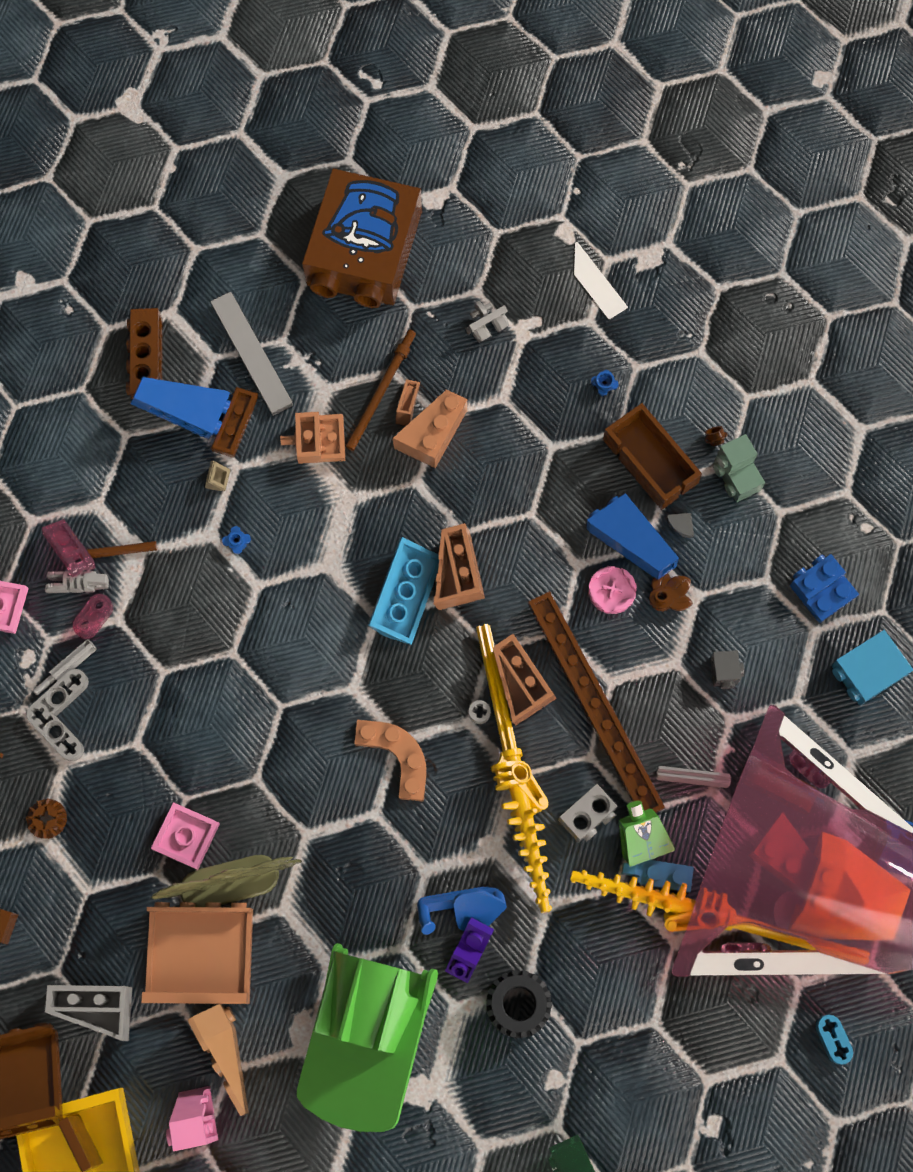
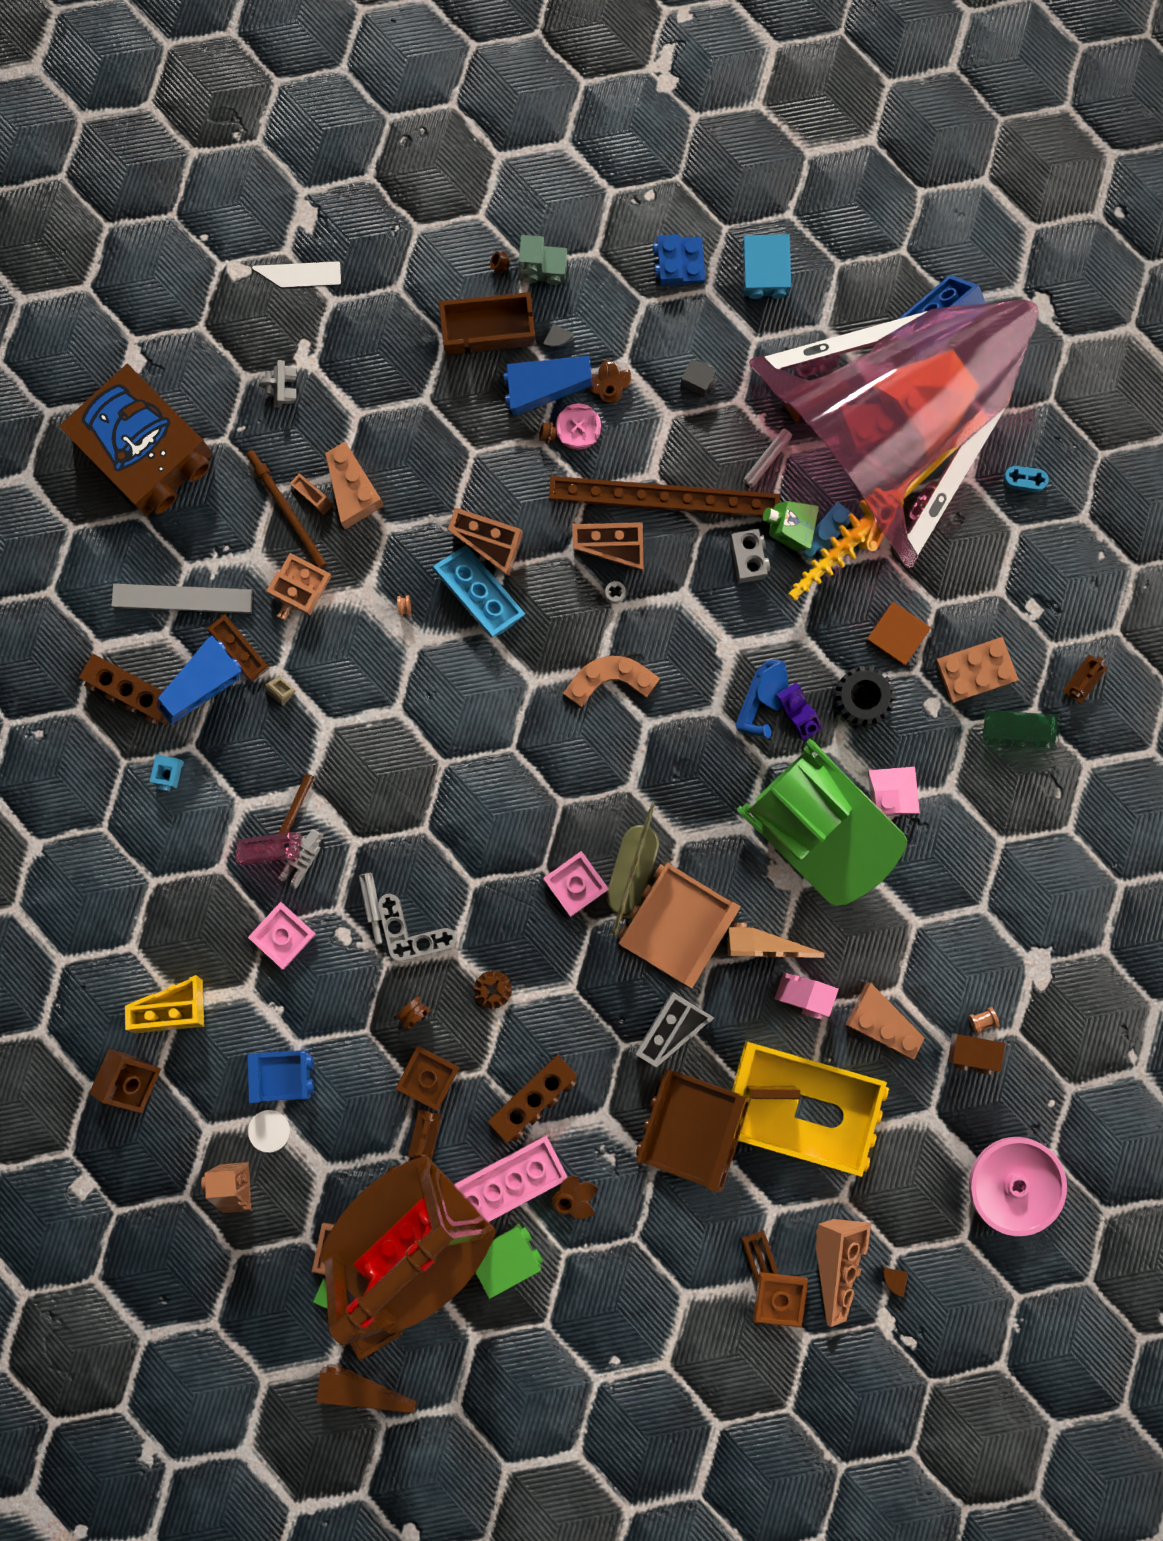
camera: 60 degrees left, 10 degrees up
(91, 419) = (160, 767): none -> dark azure brick
(95, 617) = (340, 860): clear pink plate -> none
(236, 547) = (346, 711): blue plate -> none
(354, 535) = (404, 605): none -> nougat bush
(446, 1091) = (894, 790): none -> bright pink slope
(524, 790) = (685, 593): yellow piece -> none
(588, 566) = (547, 432): none -> reddish brown plate
(603, 1003) = (898, 633): none -> dark orange tile
(605, 376) = (398, 316): blue plate -> none
(615, 1103) = (976, 670): none -> nougat plate

